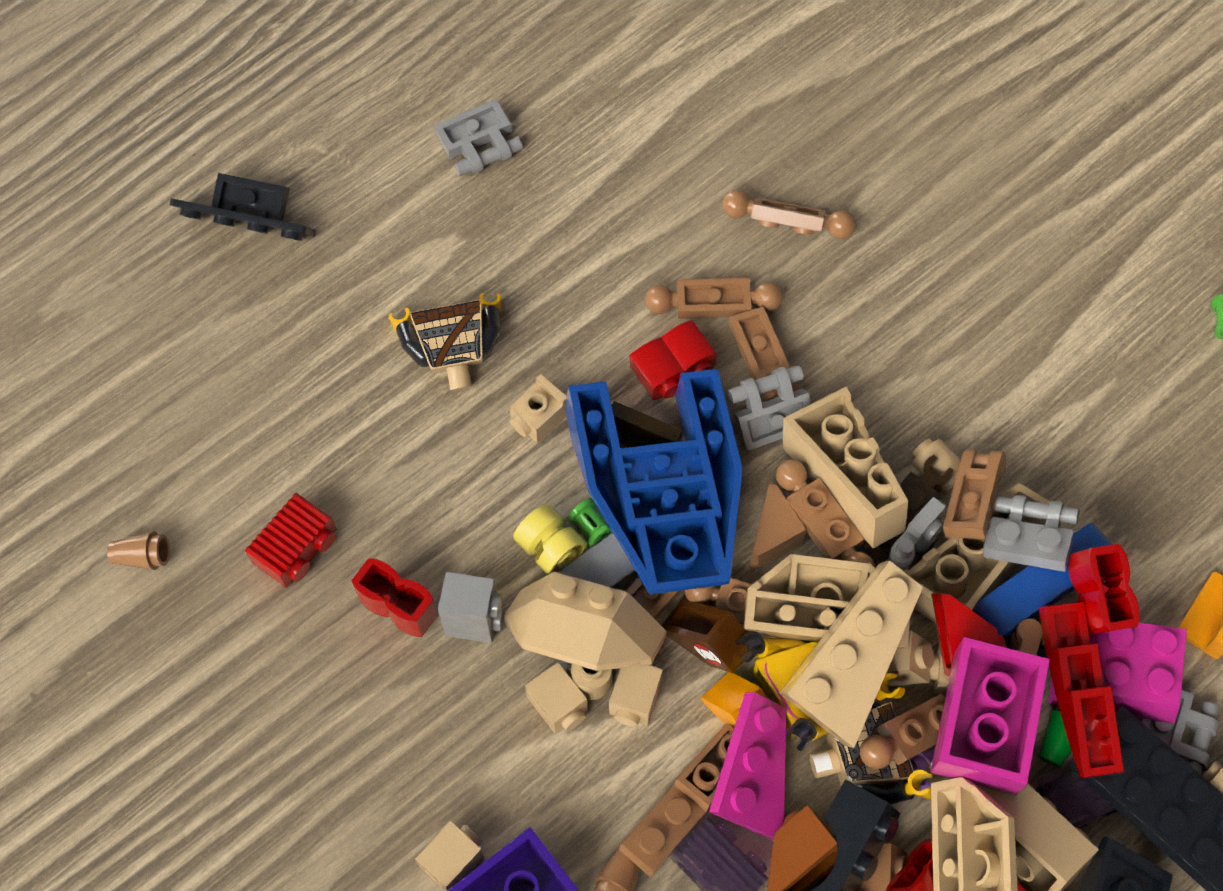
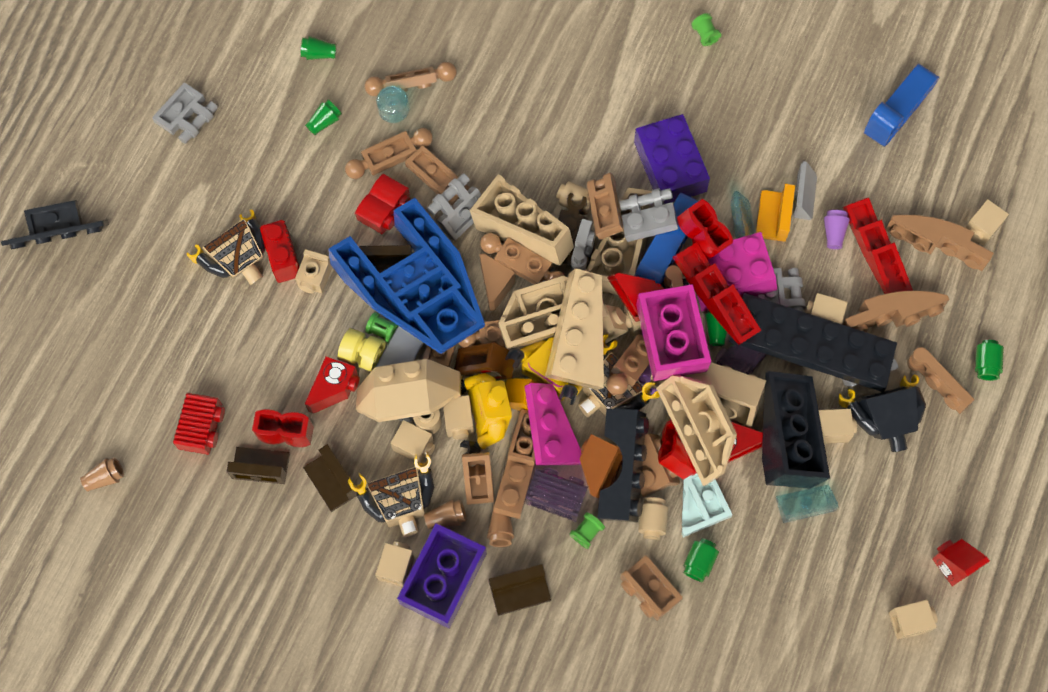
camera: 25 degrees left, 5 degrees up
(342, 633) = (259, 465): none -> dark brown panel
(424, 697) = (330, 479): none -> dark brown panel
(470, 607) = (334, 412): light grey brick -> none
(495, 559) = (332, 385): none -> red slope
(501, 764) = (398, 497): none -> torso
(508, 362) = (280, 250): none -> red brick
(554, 822) = (446, 515): none -> medium nougat cone
(621, 791) = (478, 478): none -> medium nougat slope
(650, 216) = (323, 117): none -> green cone
(681, 705) = (489, 409): none -> yellow torso
(684, 126) = (317, 49): none -> green cone
(748, 236) = (392, 104): none -> clear light blue head
(1102, 469) = (671, 157): none -> dark purple brick
(1168, 594) = (741, 215): none -> clear light blue slope

